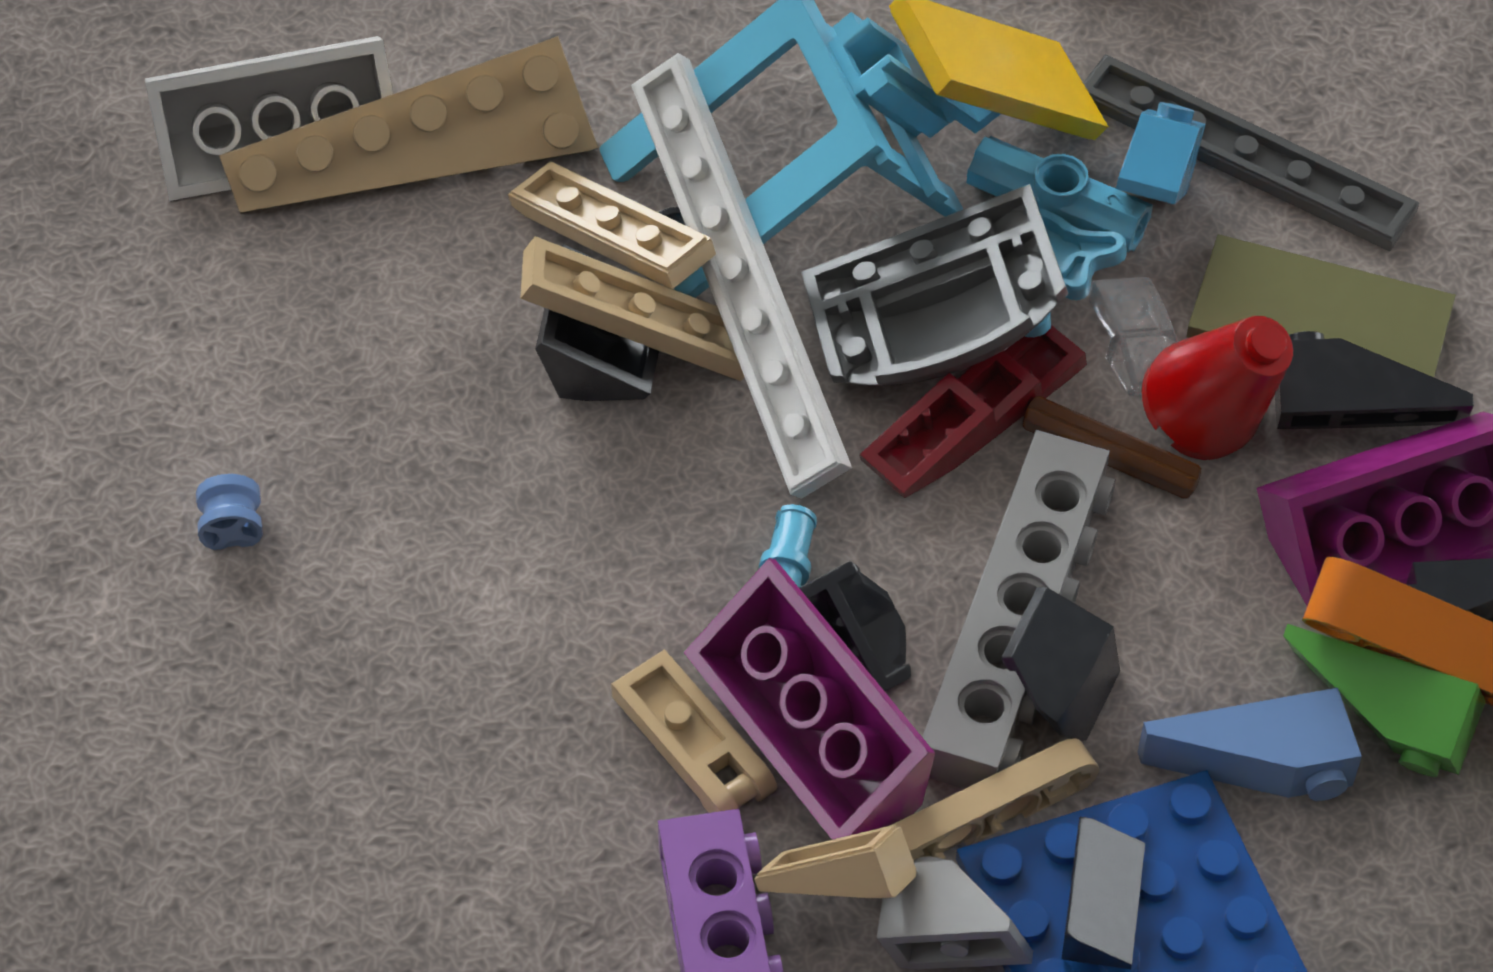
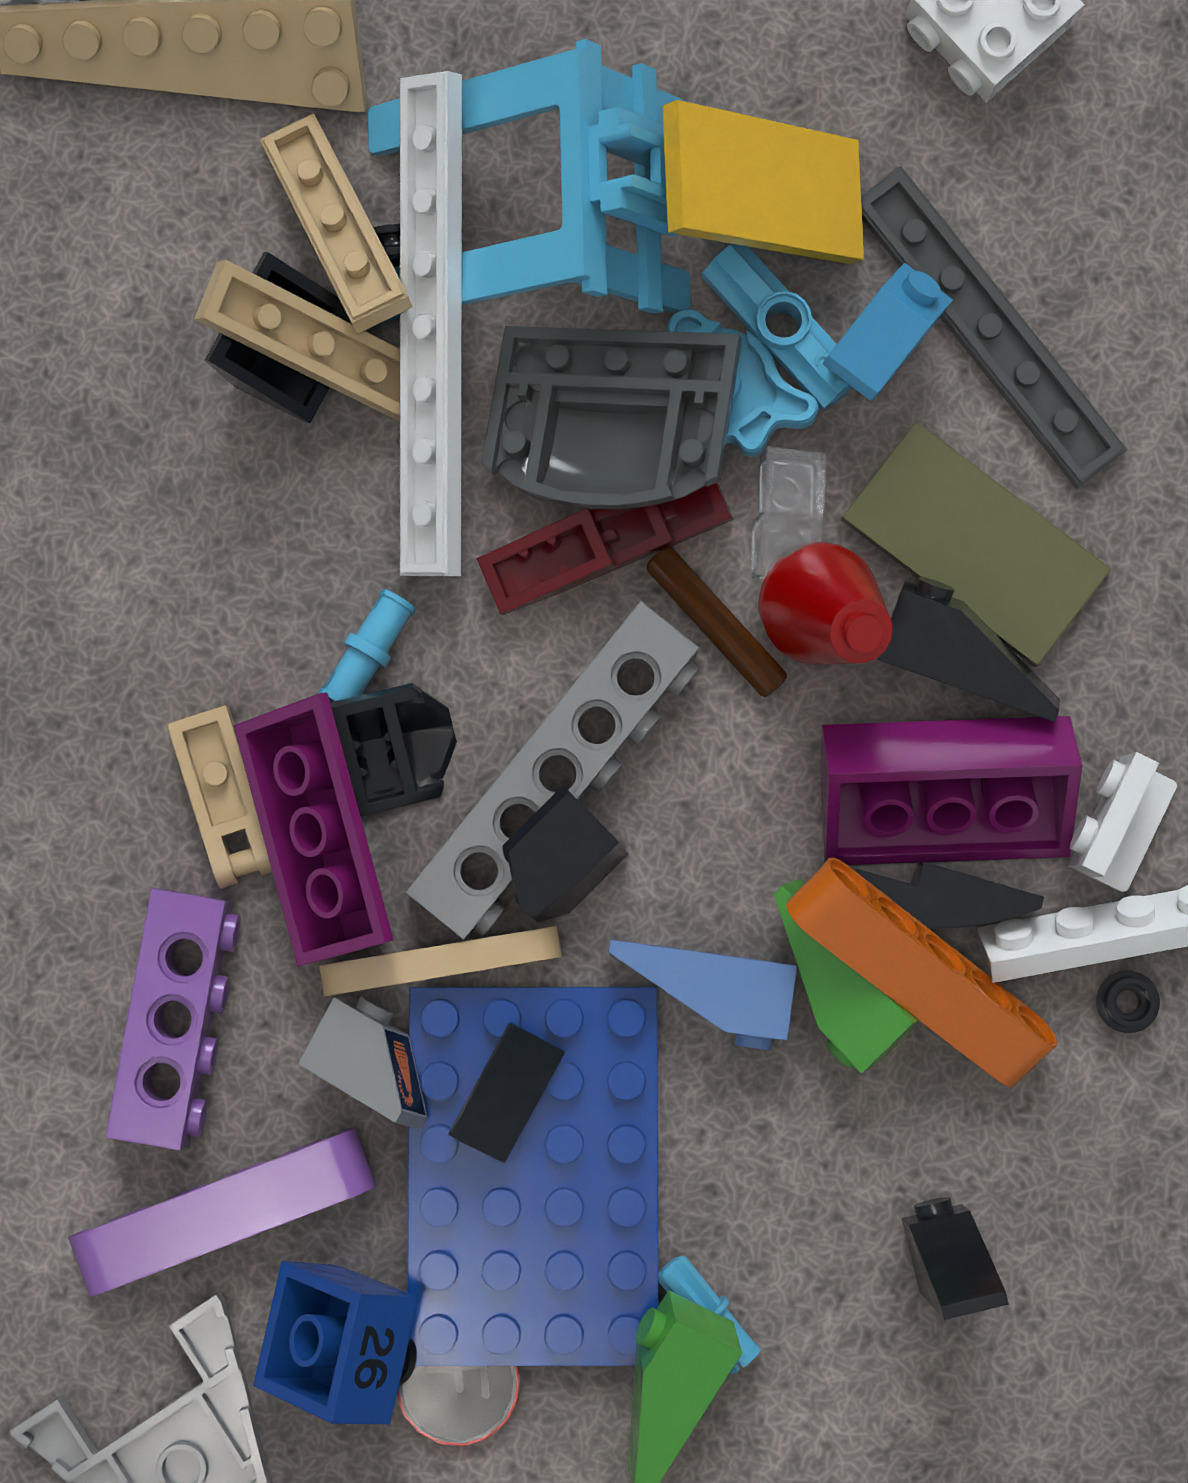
camera: 20 degrees right, 30 degrees up
(850, 866) = (305, 1025): tan slope -> none

